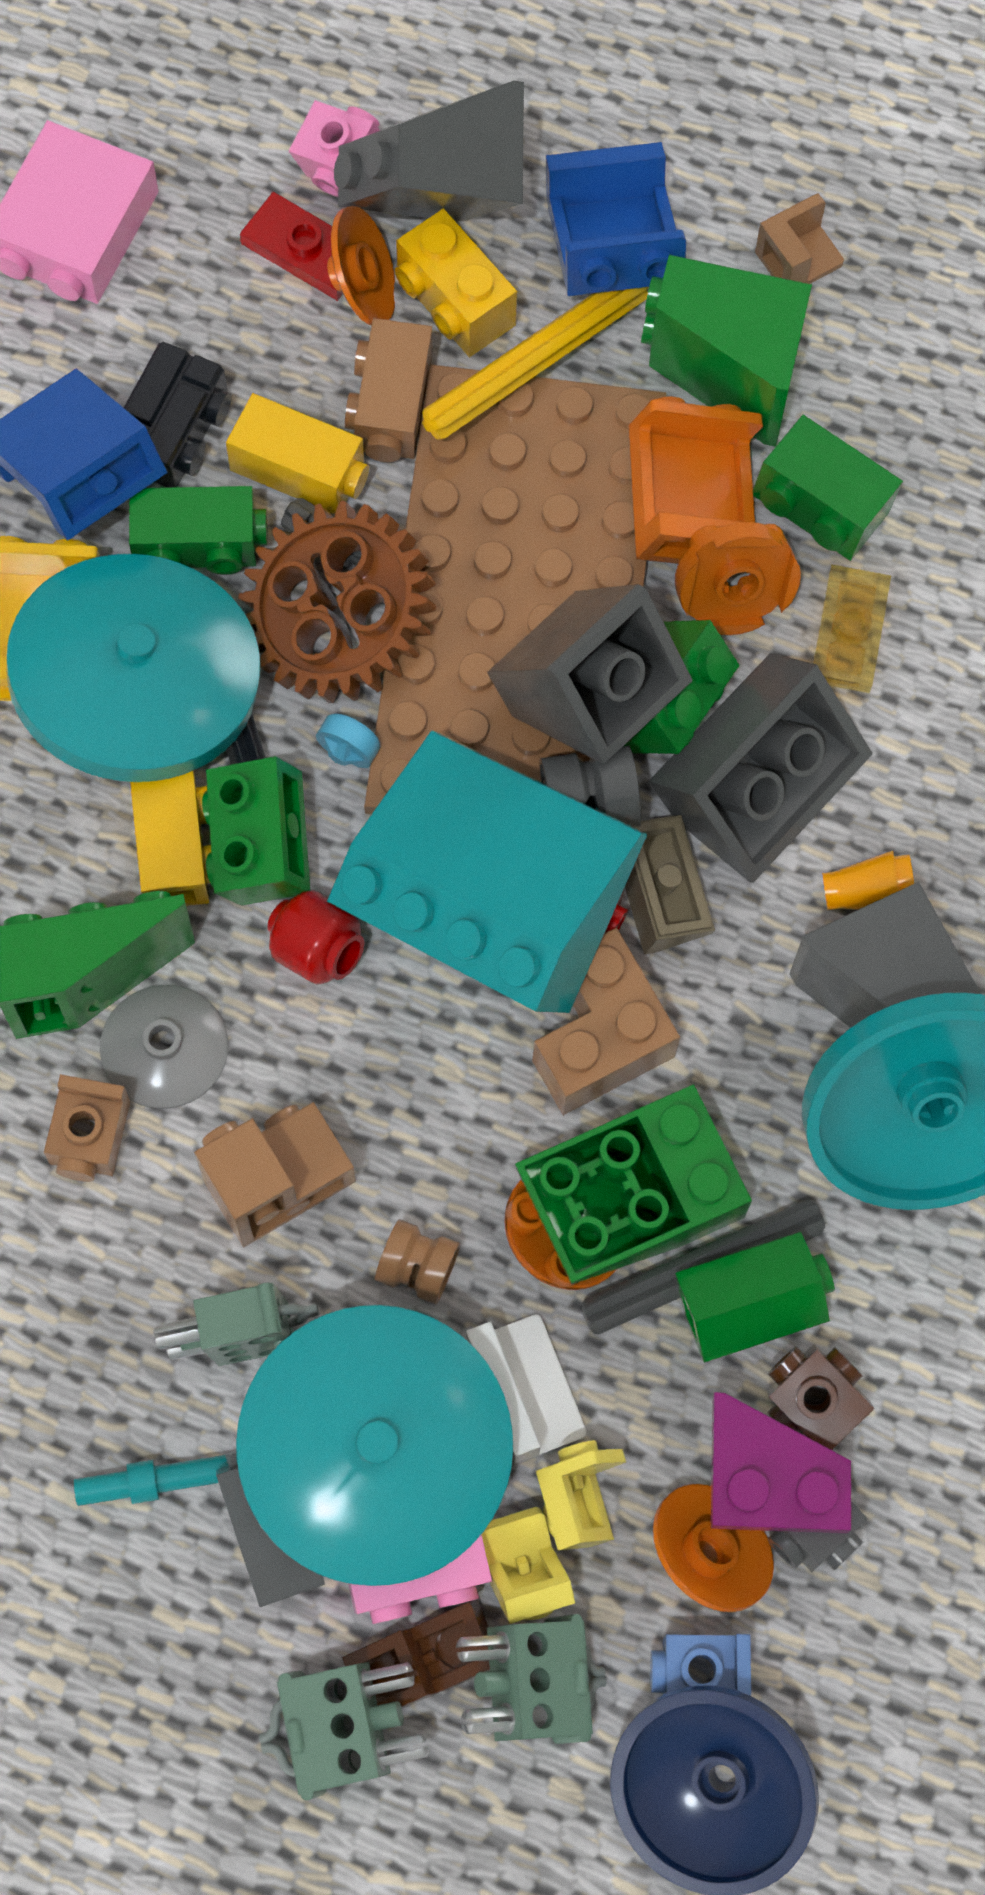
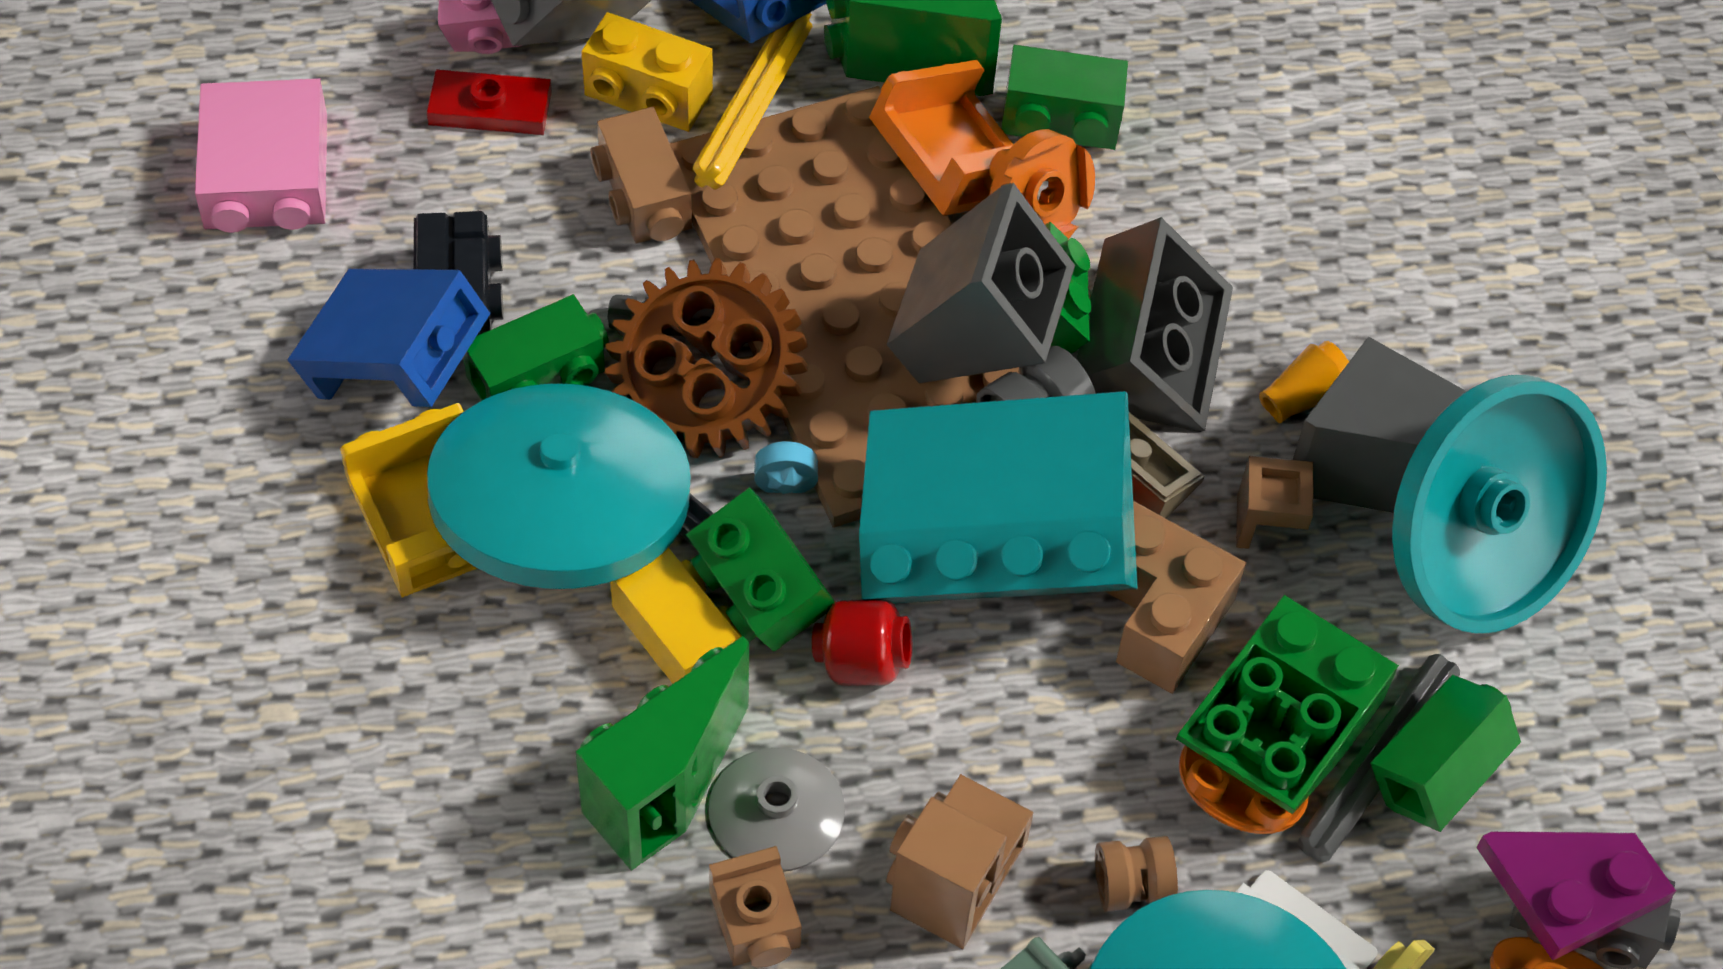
camera: 30 degrees left, 15 degrees down
(296, 454) = (593, 256): yellow brick -> none
(361, 265) = (554, 90): orange dish -> none
(757, 984) = (1273, 495): none -> medium nougat panel
(836, 1413) = (1558, 797): reddish brown brick -> none
(851, 627) = (1148, 190): clear yellow plate -> none

